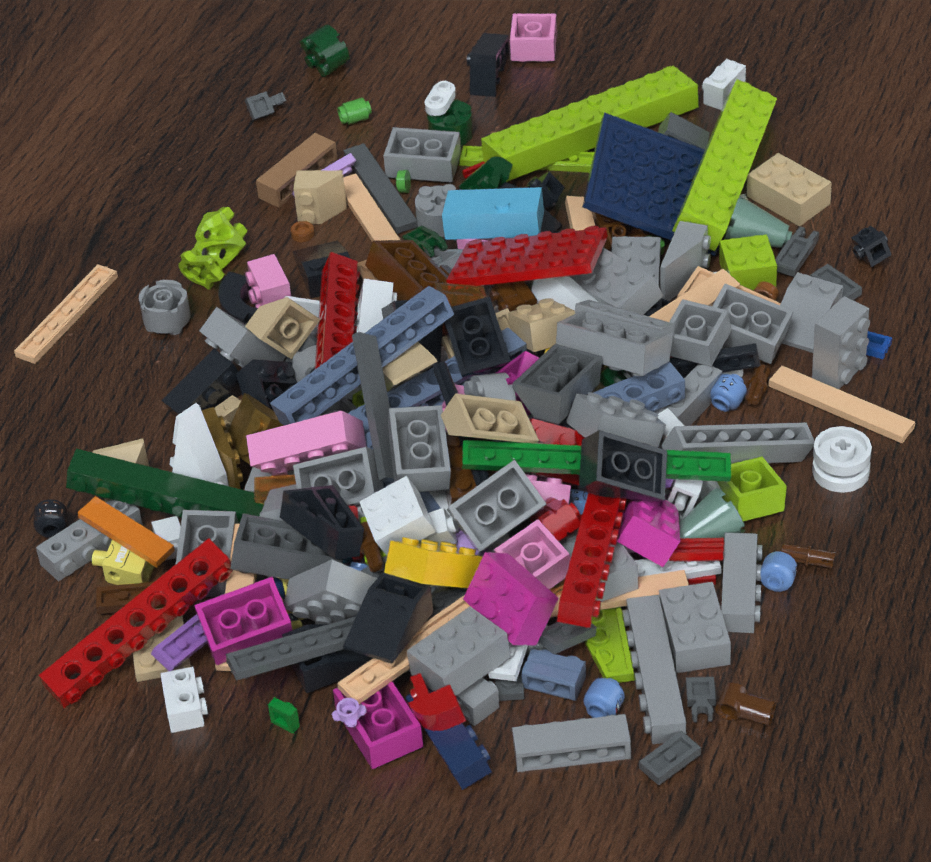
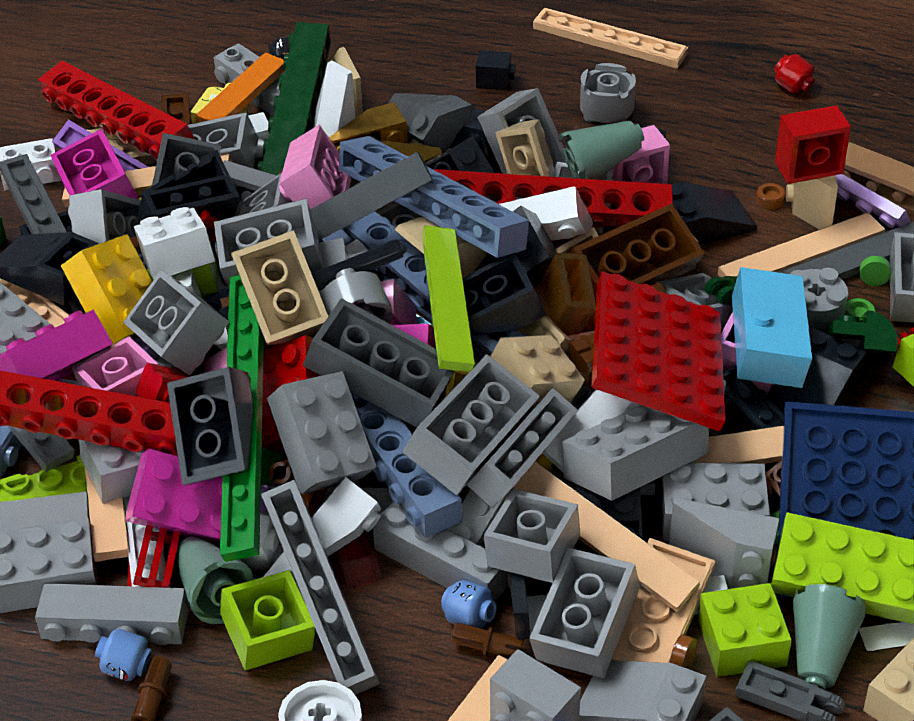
camera: 85 degrees right, 0 degrees up
(106, 381) = (494, 70): none -> black brick
(155, 203) = (794, 73): none -> red head
(197, 387) = (433, 117): none -> dark grey wedge
(203, 261) = (727, 120): lime hips -> none
(290, 281) = (600, 148): none -> sand green cone
(313, 165) = (812, 144): none -> red brick
(491, 344) = (447, 299): none -> lime tile
(550, 188) = (854, 393): black brick -> none

